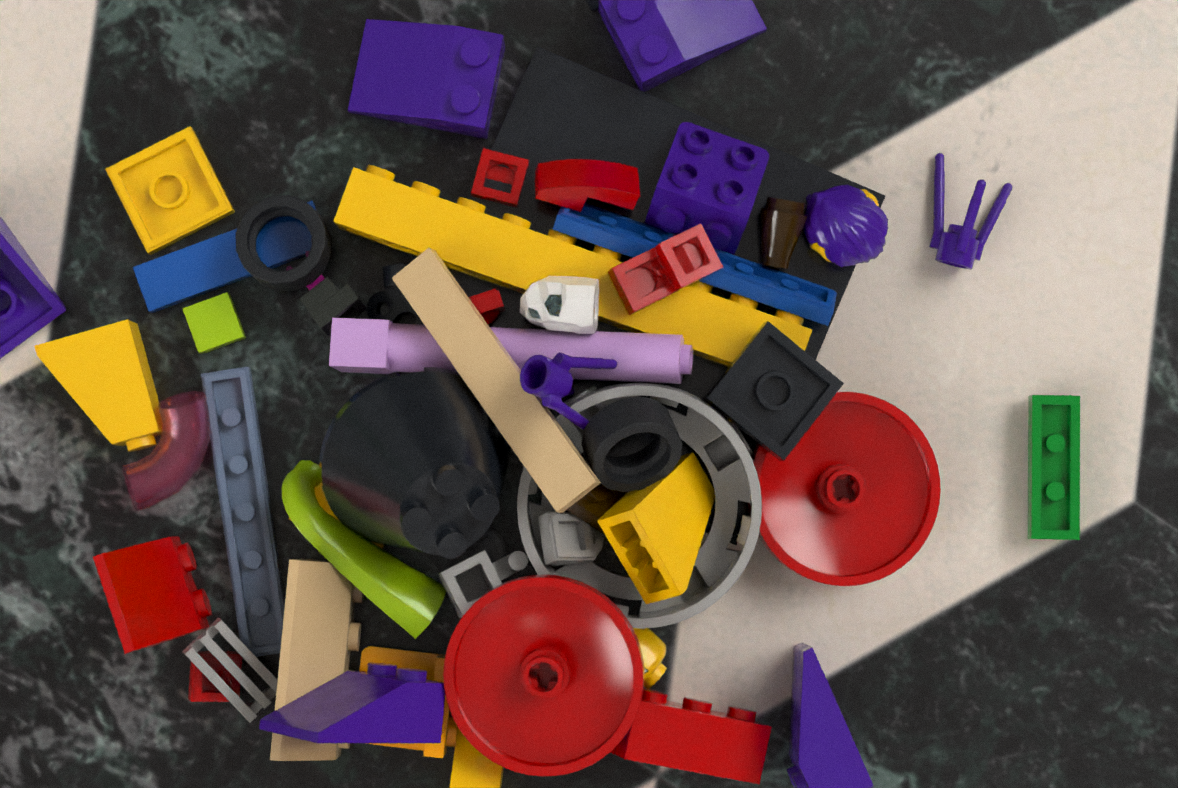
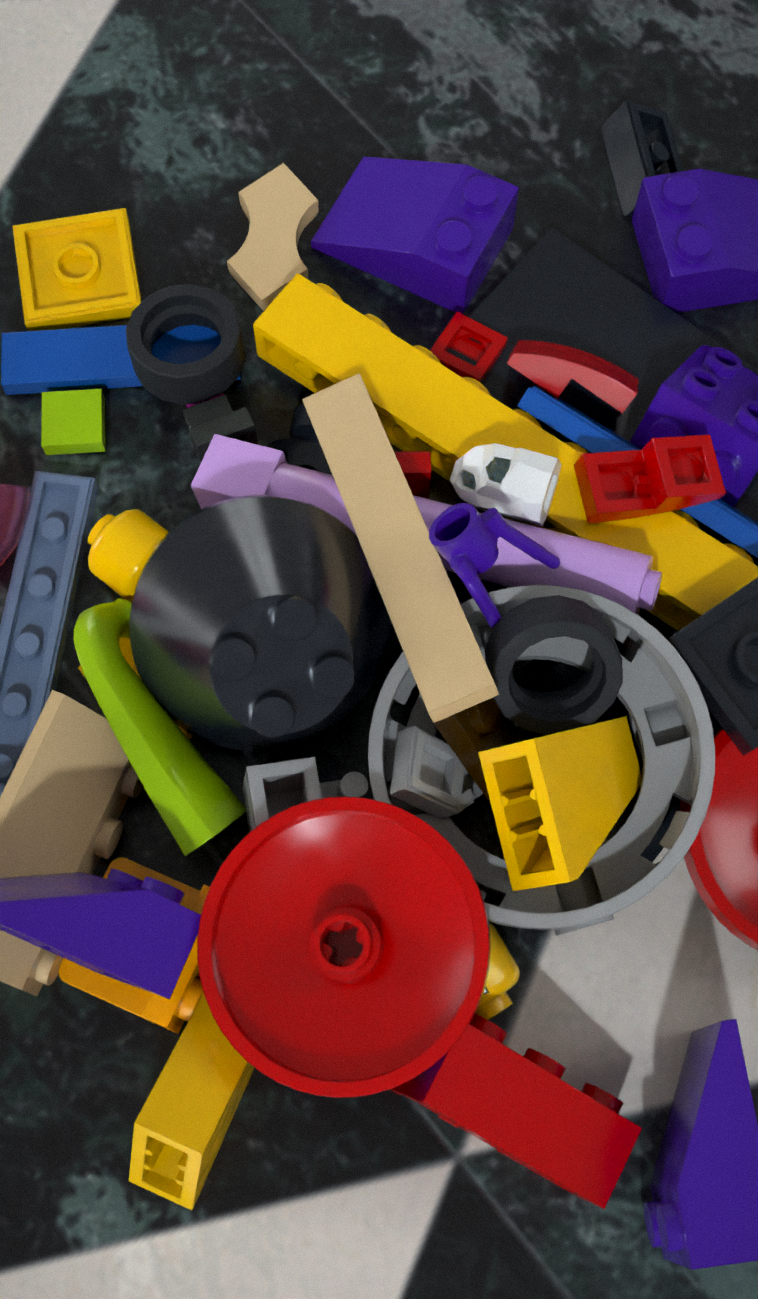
camera: 20 degrees right, 15 degrees down
(298, 420) = (122, 548): none -> yellow head
(313, 92) = (277, 213): none -> tan tile

